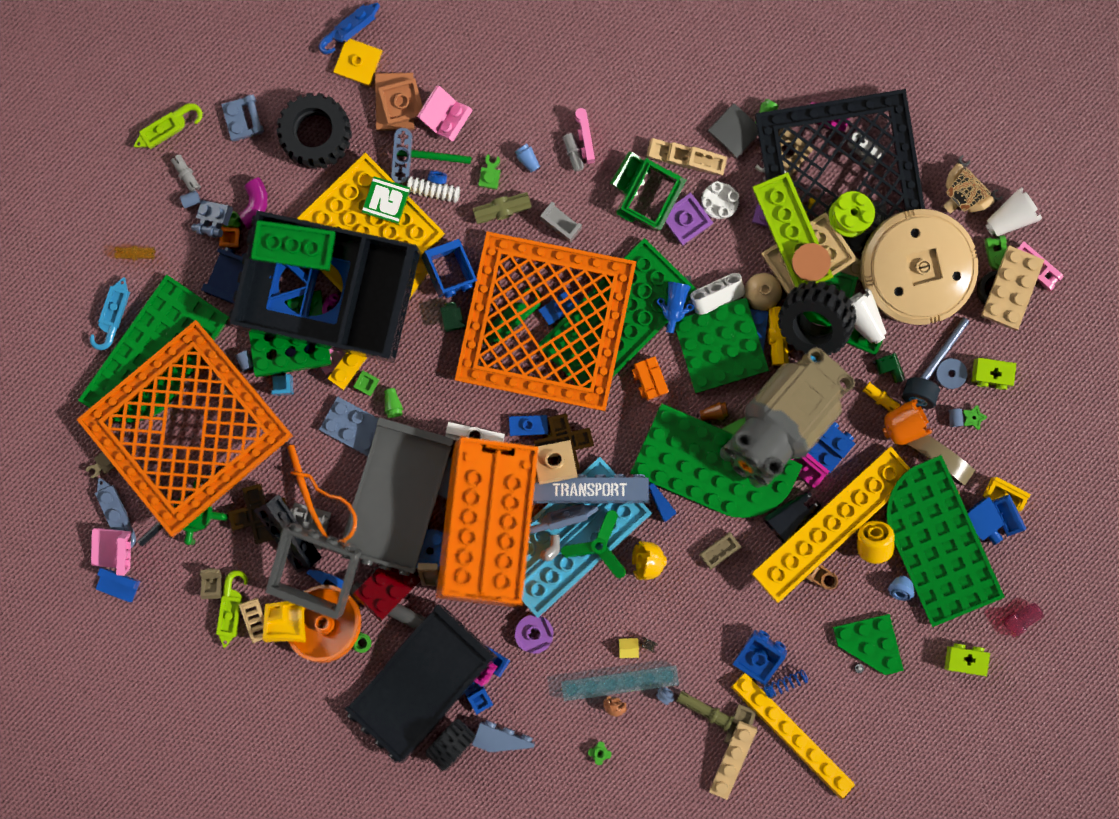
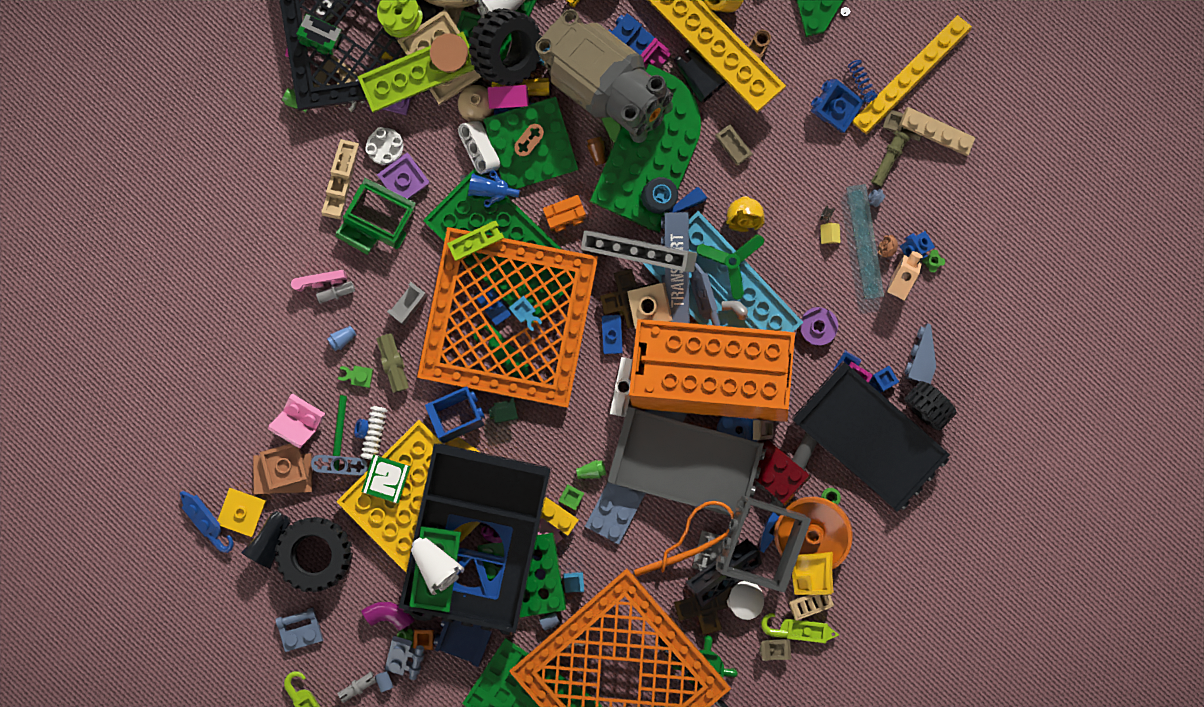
camera: 85 degrees left, 0 degrees up
(259, 555) = (746, 600): none -> white dish
(294, 244) = (435, 565): none -> white cone
(322, 81) = (263, 546): none -> black piece
(550, 336) = (523, 311): none -> dark azure plate
(582, 721) = (905, 275): none -> light nougat torso
(609, 451) = (639, 251): none -> light grey brick
(611, 732) = (919, 243): none -> blue brick
(621, 287) = (475, 241): none -> lime plate
(666, 479) = (665, 191): none -> black wheel
(720, 346) = (525, 137): none -> nougat beam
(734, 130) = (313, 132): dark grey slope -> none
(767, 322) = (508, 96): none -> dark pink hinge
(830, 134) = (319, 34): none -> brick

